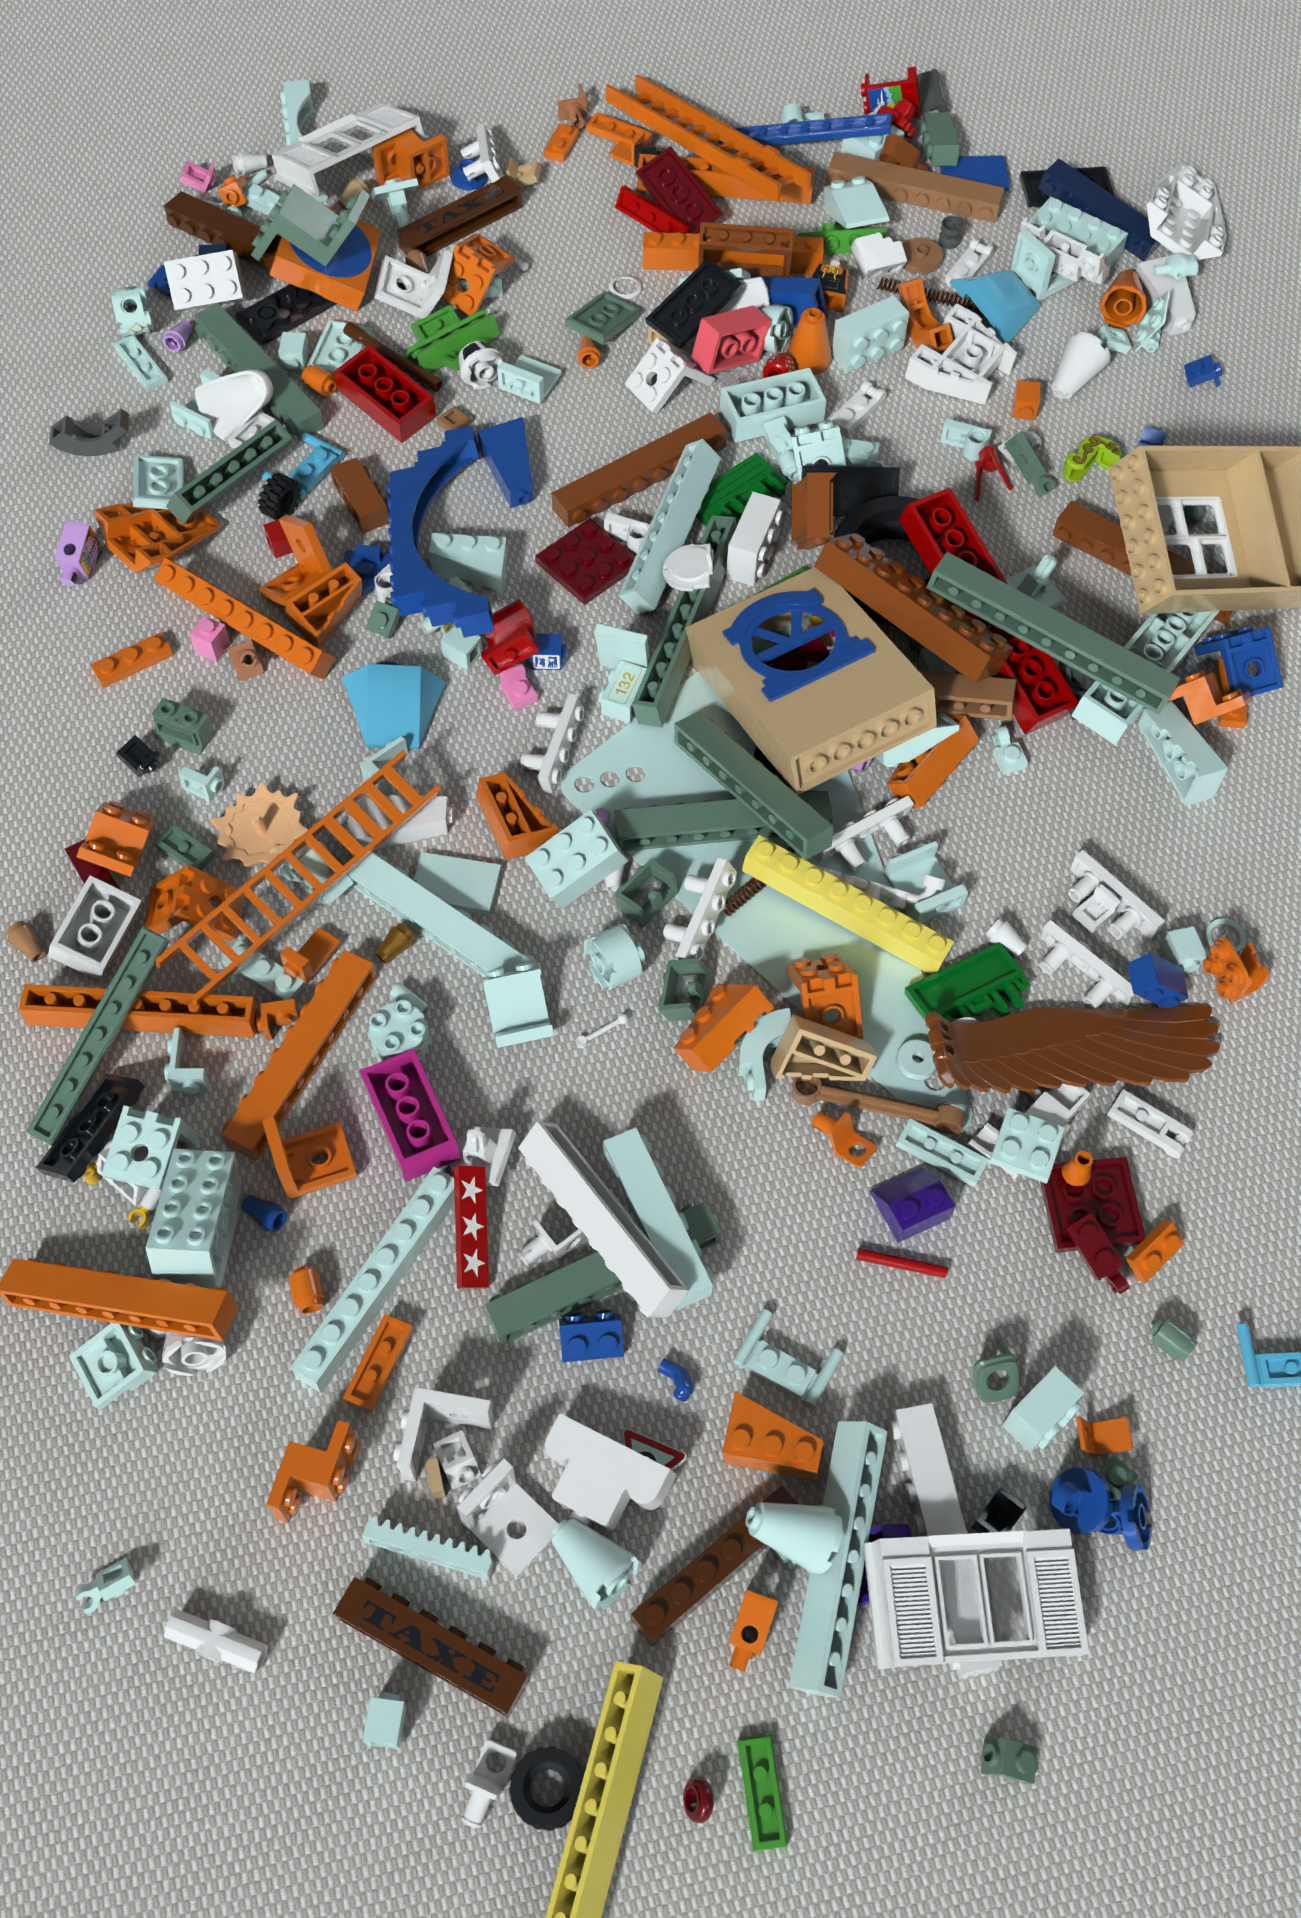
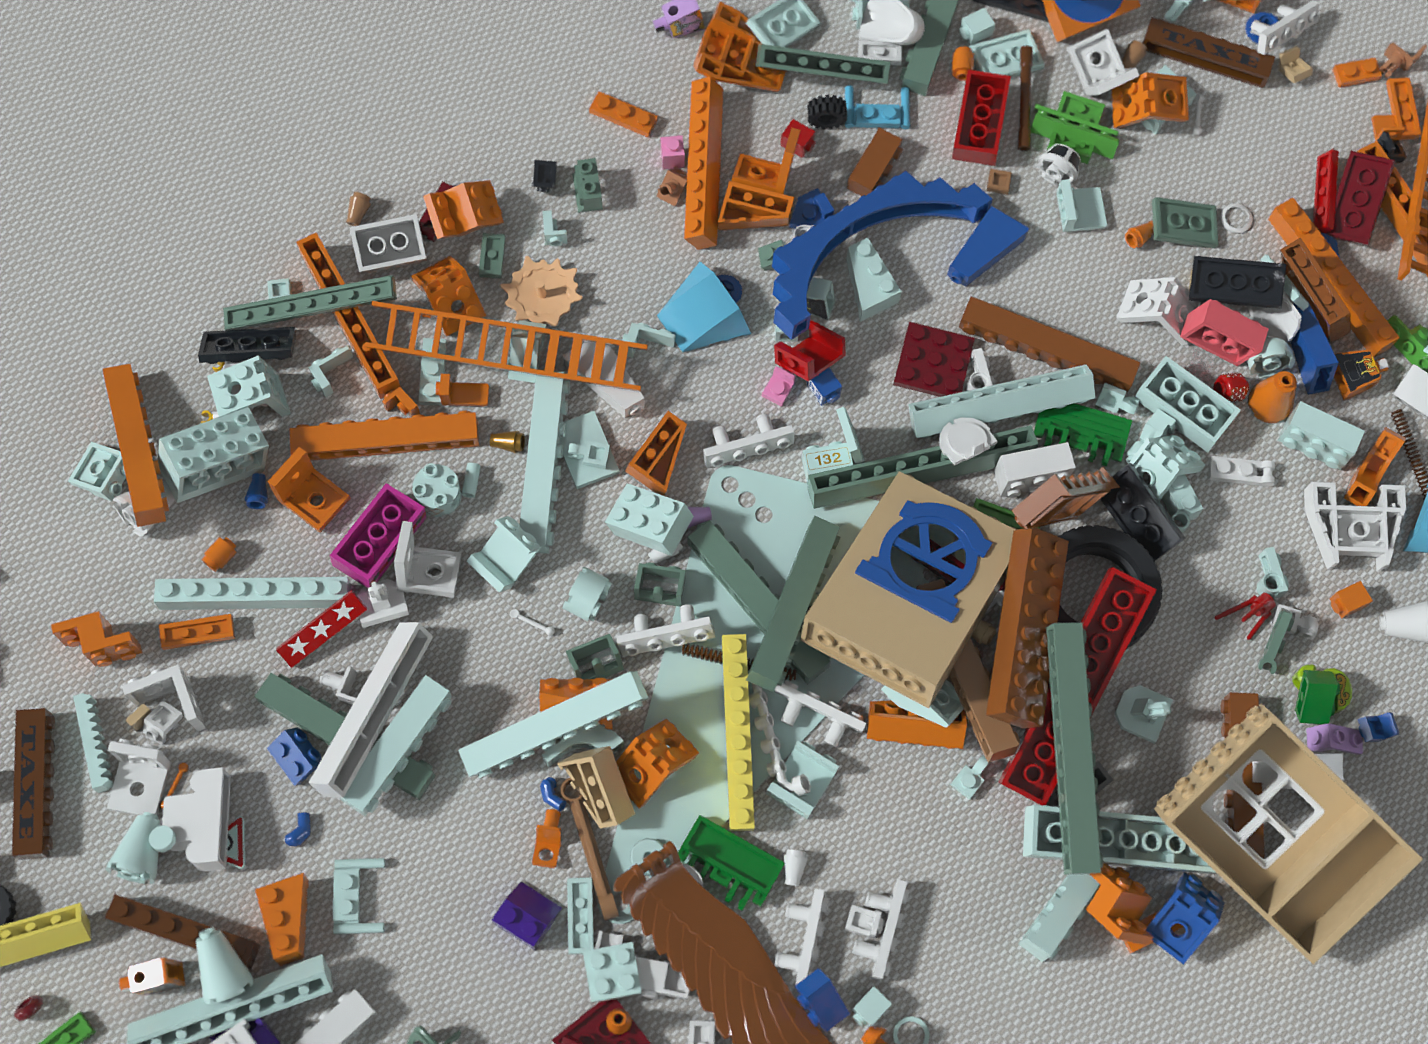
camera: 55 degrees right, 10 degrees up
(49, 1066) = (279, 288): none -> light aqua tile
(462, 1090) = (414, 563): none -> white bracket
(469, 873) = (593, 455): none -> light aqua plate
(523, 1467) = (183, 768): none -> orange hinge
(603, 1519) = (162, 838): none -> light aqua tile
(729, 451) = (1113, 399): none -> light aqua plate
(737, 1052) = (554, 723): none -> light aqua brick
(796, 1112) = (548, 794): none -> blue arm
(901, 1263) = (477, 934): red bar -> none
(1095, 458) = (1317, 697): none -> green brick

